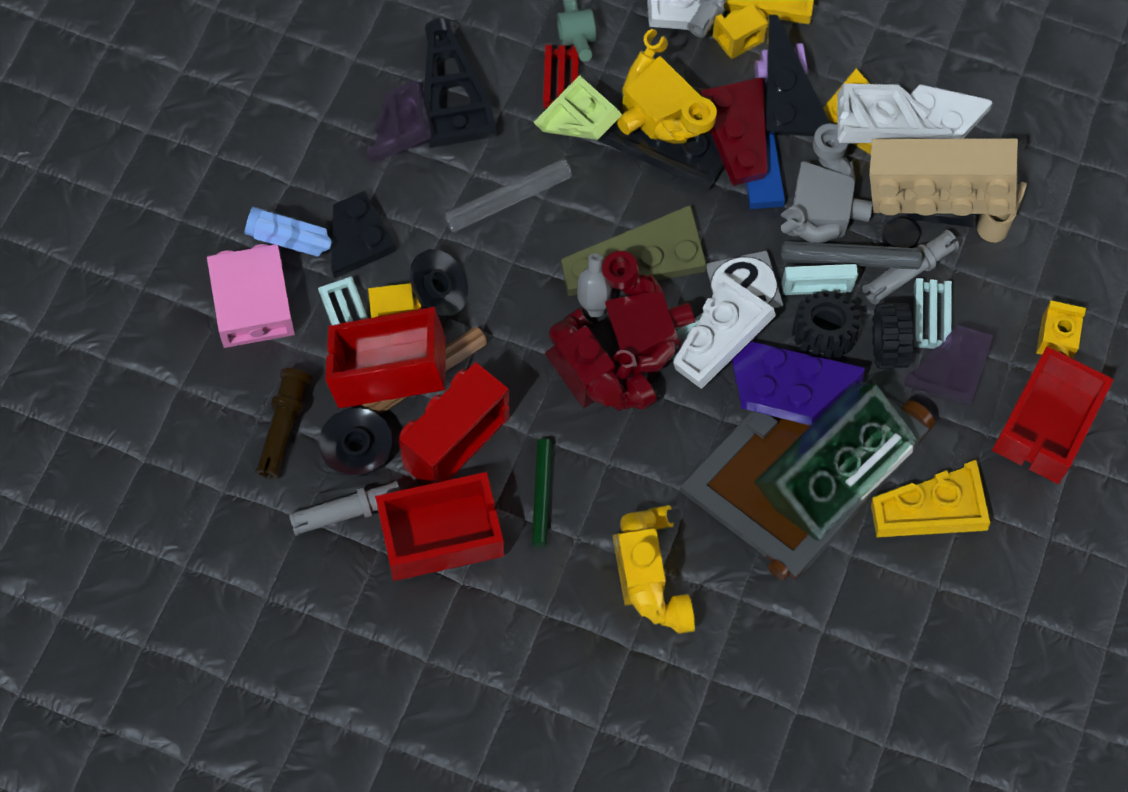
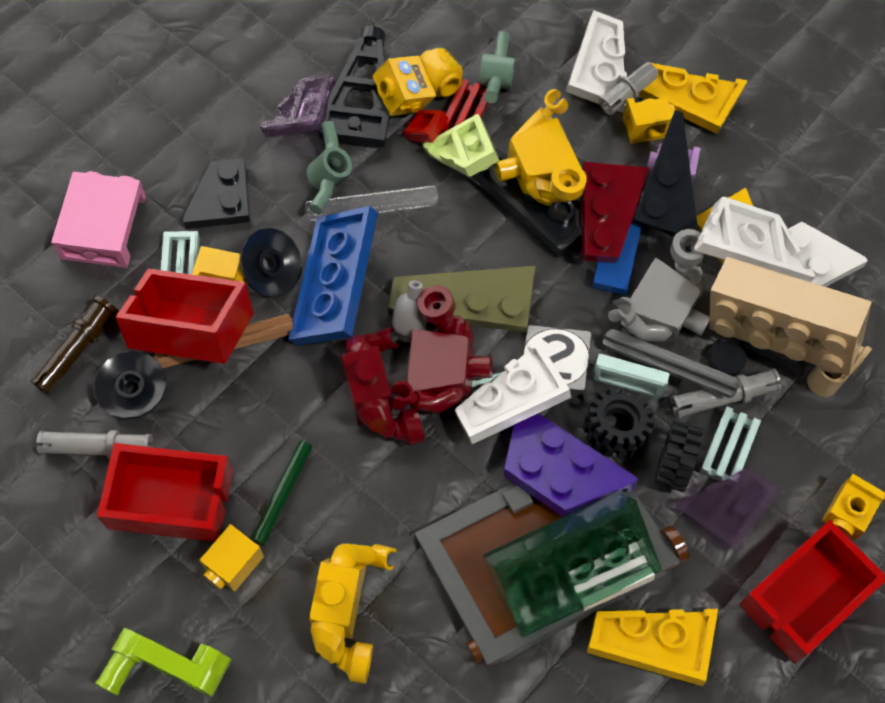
camera: 20 degrees right, 0 degrees up
(287, 232) = (154, 172): light blue rock -> none
(454, 174) = (328, 168): none -> sand green piece
(454, 426) = (221, 401): red piece -> none
(494, 69) = (404, 85): none -> yellow head
(507, 276) = (334, 276): none -> blue plate
(521, 45) = (443, 71): none -> yellow head
(524, 566) = (231, 559): none -> yellow brick
(529, 102) = (426, 126): none -> red tile
(539, 675) = (130, 648): none -> lime beam

